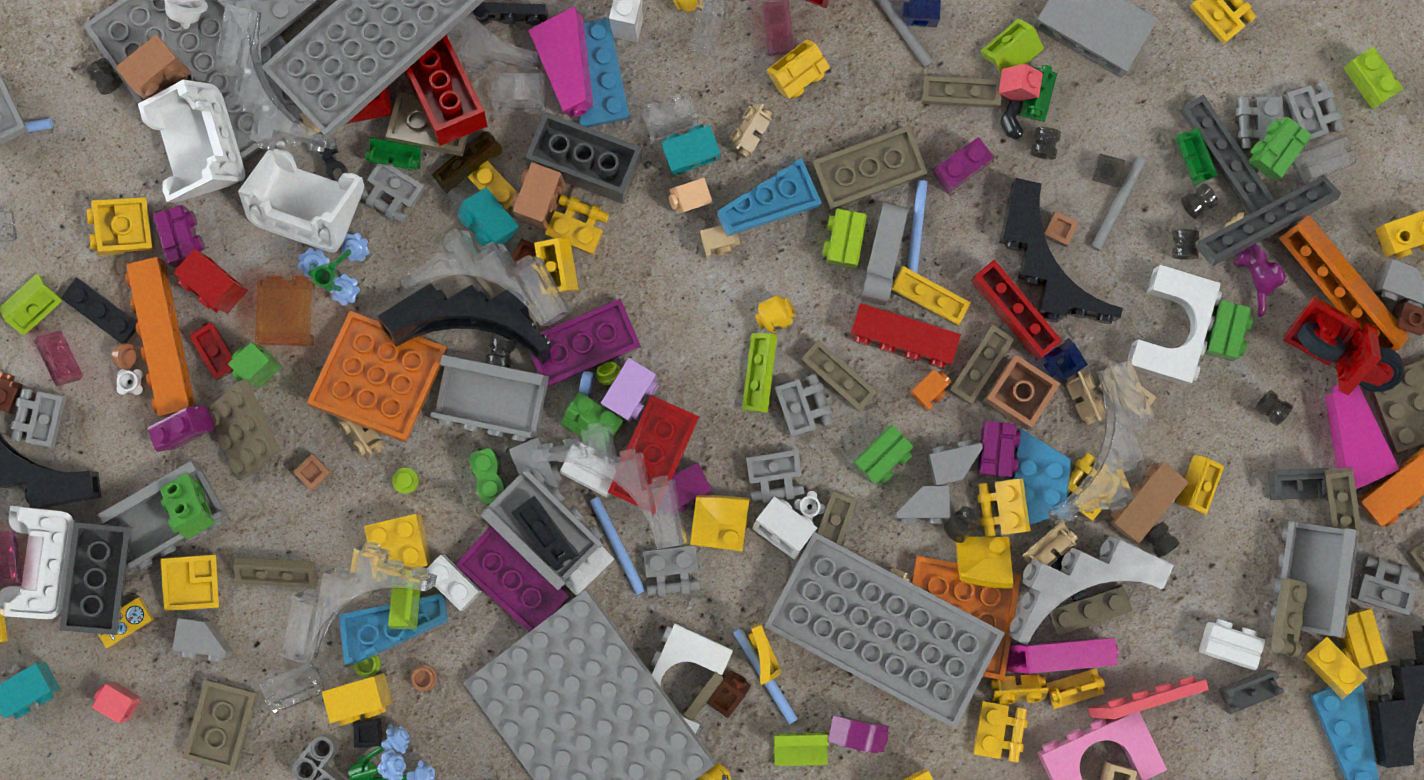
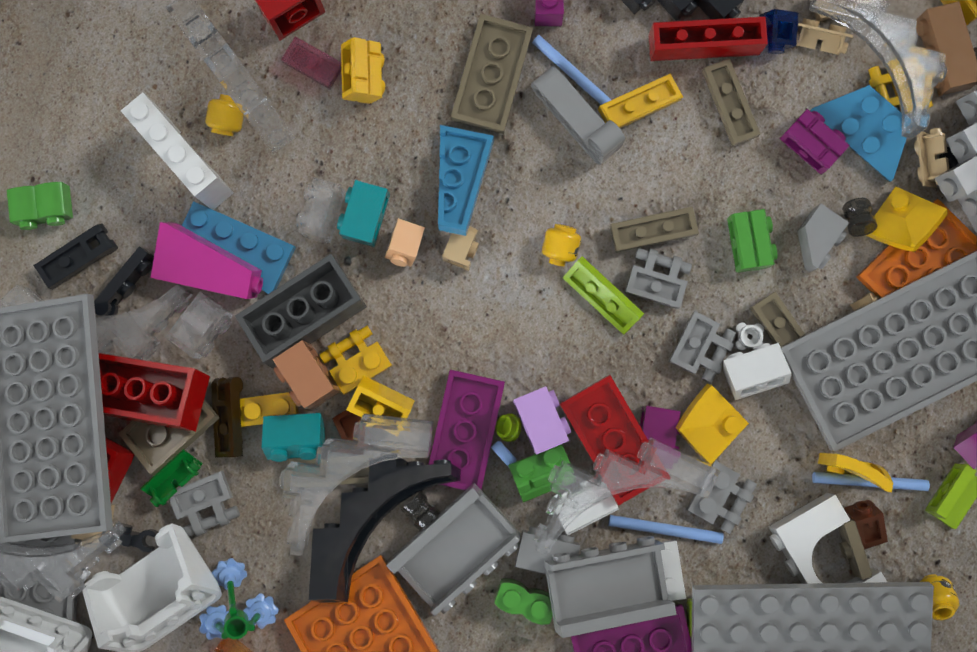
camera: 55 degrees left, 0 degrees up
(544, 533) = (616, 589): black plate -> none
(743, 137) = (377, 140): tan hinge -> none
(845, 238) = (539, 138): lime brick -> none
(904, 335) = (659, 148): red brick -> none
(930, 389) = (722, 160): orange brick -> none
(952, 464) = (801, 187): light grey slope -> none
(1011, 507) = (872, 163): yellow plate -> none
(1021, 392) = (781, 84): nougat brick -> none

